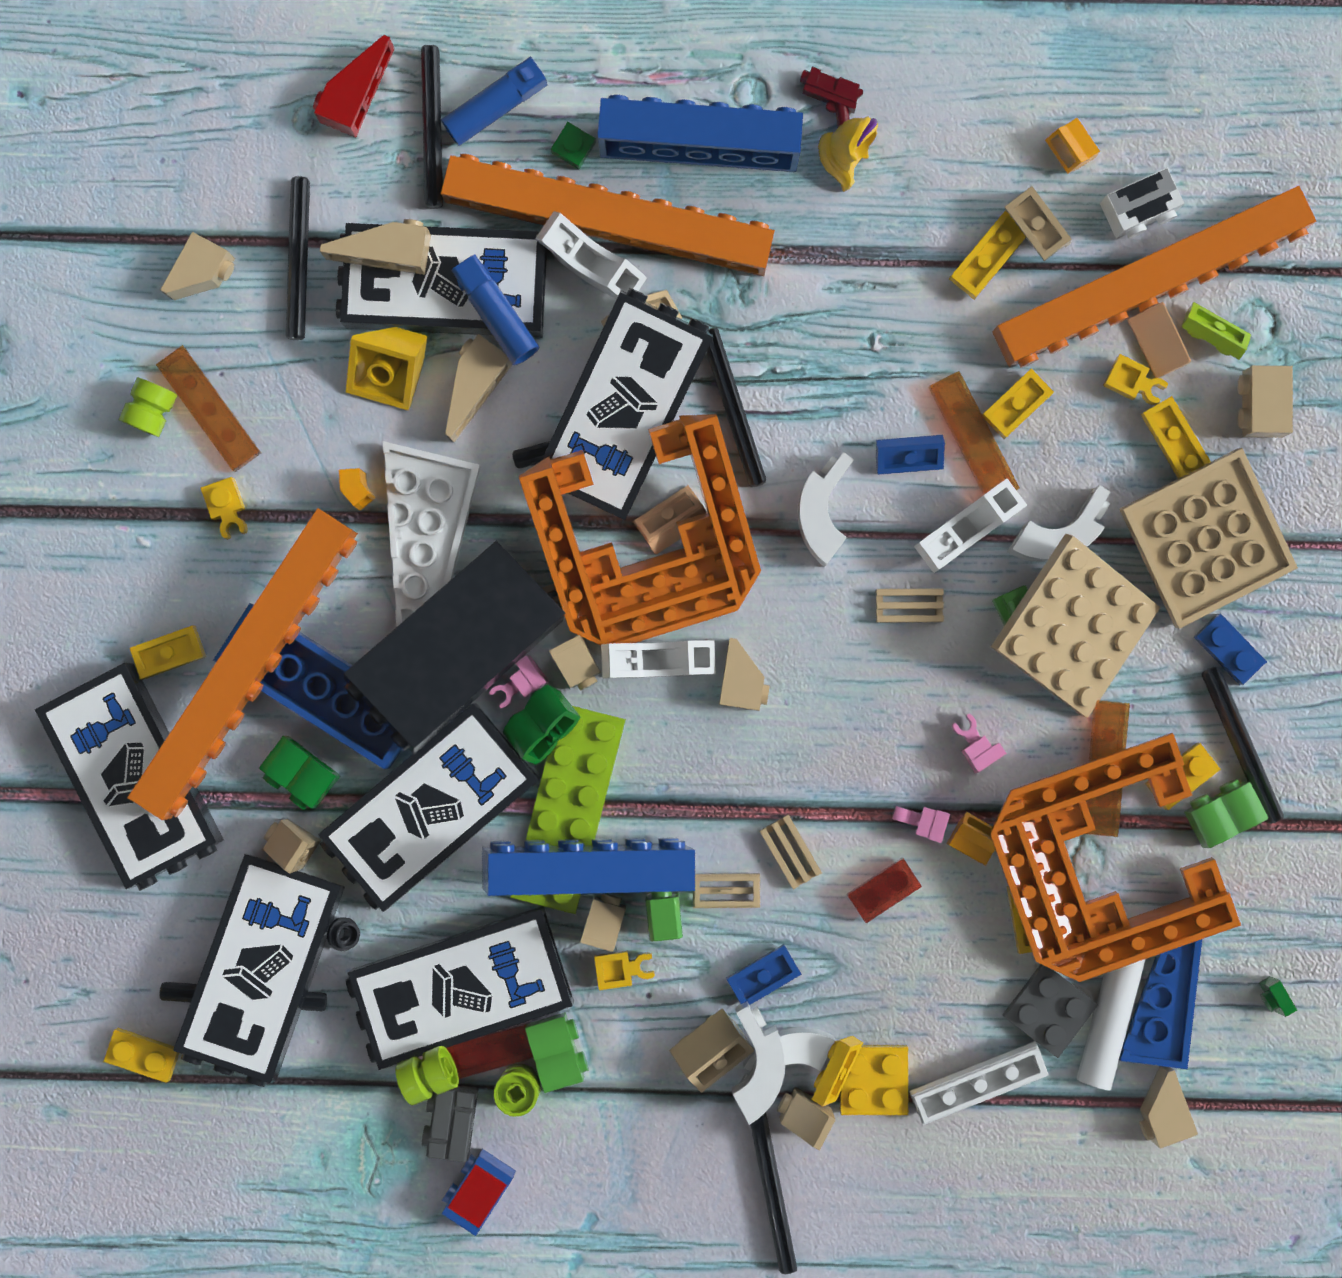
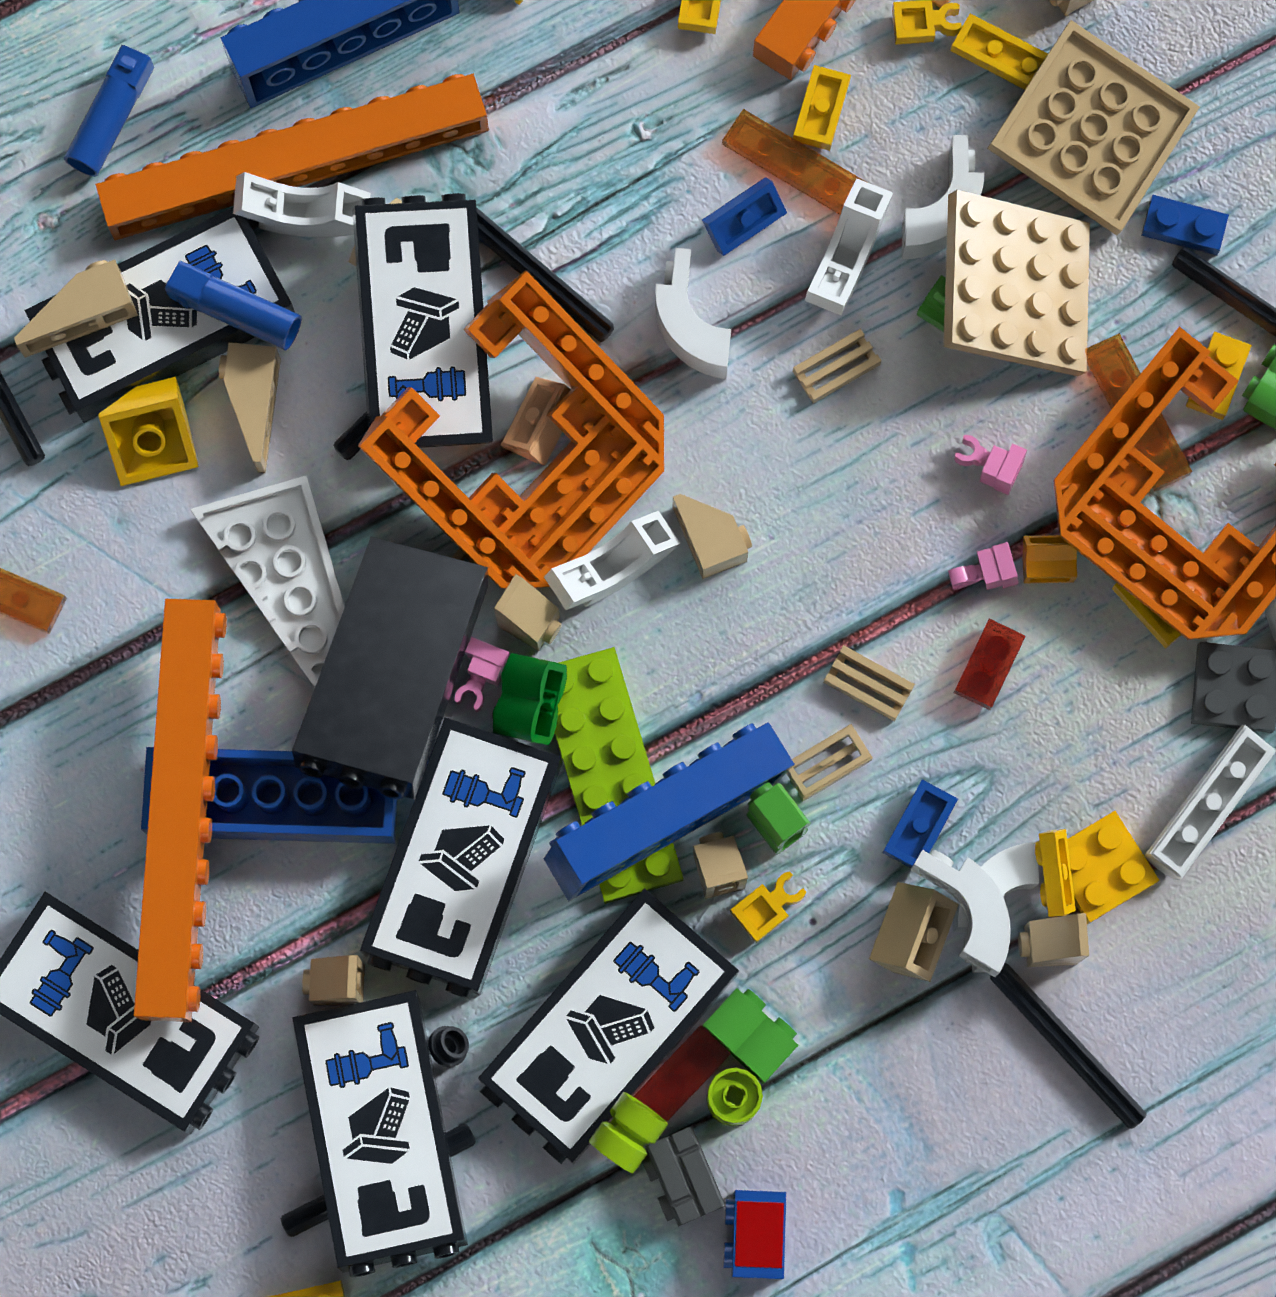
camera: 35 degrees left, 10 degrees down
(167, 652) = (84, 859): yellow plate -> none
(223, 502) = (56, 671): yellow plate -> none
(299, 773) = (300, 902): green brick -> none
(354, 487) = (190, 573): light orange piece -> none
(431, 126) = (58, 172): black axle -> none
(573, 145) = (215, 110): green plate -> none

